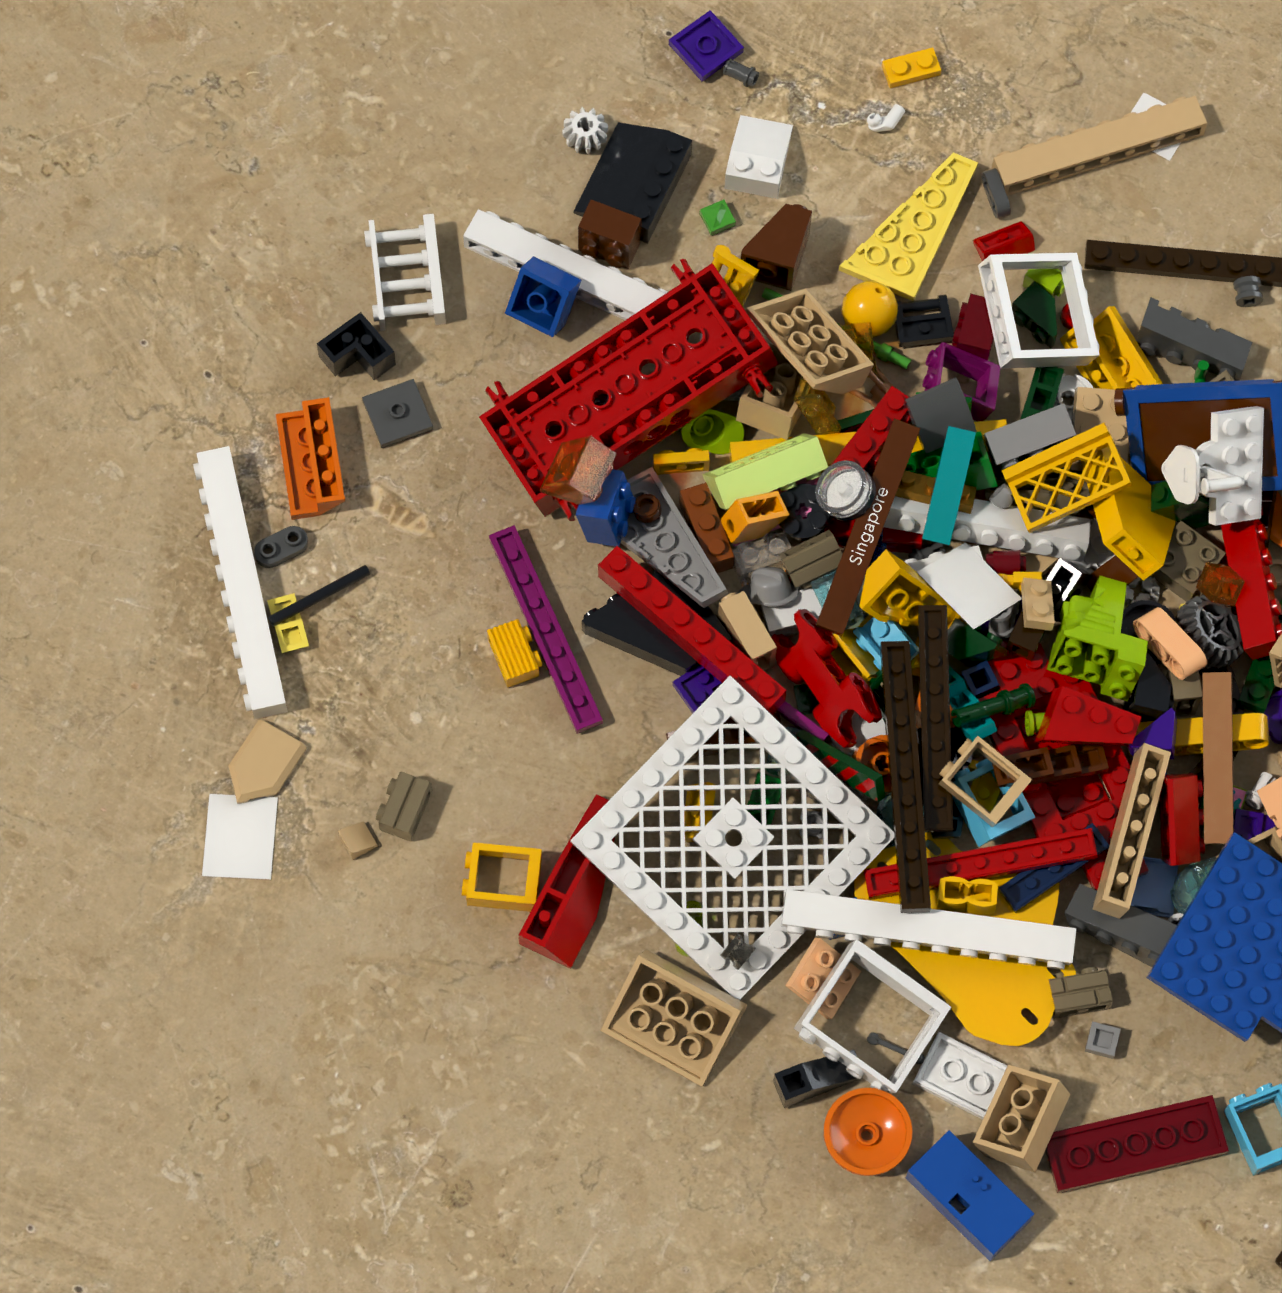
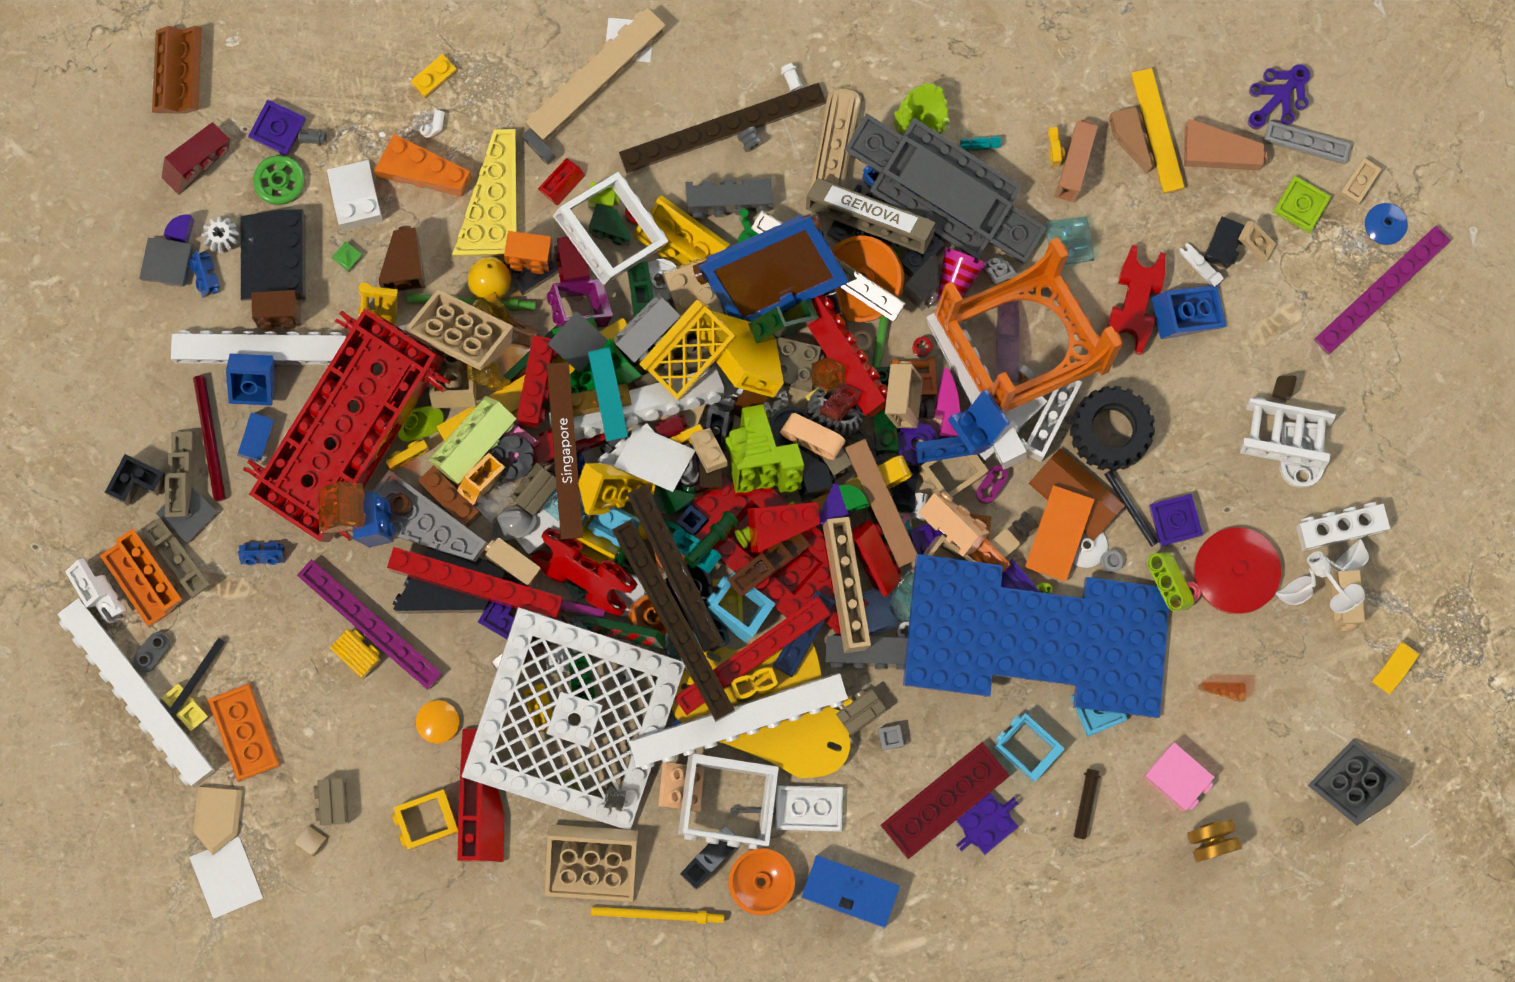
camera: 30 degrees left, 10 degrees up
(252, 449) = (96, 591): none -> white plate
(341, 683) = (243, 732): none -> orange tile
(361, 454) = (176, 557): none -> dark tan slope
(411, 366) = (180, 474): none -> dark tan slope
(427, 257) = (163, 403): white fence -> none
(450, 491) = (252, 554): none -> blue hinge
(463, 344) = (209, 438): none -> dark red axle
(509, 133) = (166, 262): none -> dark grey slope
(516, 363) = (255, 437): none -> blue hinge
(542, 104) = (179, 228): none -> dark purple brick
(542, 173) = (201, 265): none -> blue hinge
(570, 774) = (437, 721): none -> light orange dish
(596, 35) = (194, 157): none -> dark red wedge
(681, 122) = (287, 195): none -> bright green plate
(750, 774) = (559, 656): none -> white tile
(774, 1141) = (700, 917): none -> yellow bar
(845, 152) = (417, 166): none -> orange wedge
(845, 490) = (537, 433): clear piece -> none
(930, 295) = (528, 252): none -> orange brick
(966, 750) = (752, 605): tan window -> none
(1002, 496) = (647, 381): light grey hinge -> none
(1021, 1118) = (861, 822): tan brick -> none
(1174, 1196) = (987, 824): none -> dark purple plate
(1186, 737) = (854, 498): none -> green brick
(1221, 619) = (840, 402): none -> clear red plate
(1231, 467) = (796, 296): white plate -> none
(1251, 764) = (905, 492): none -> black slope

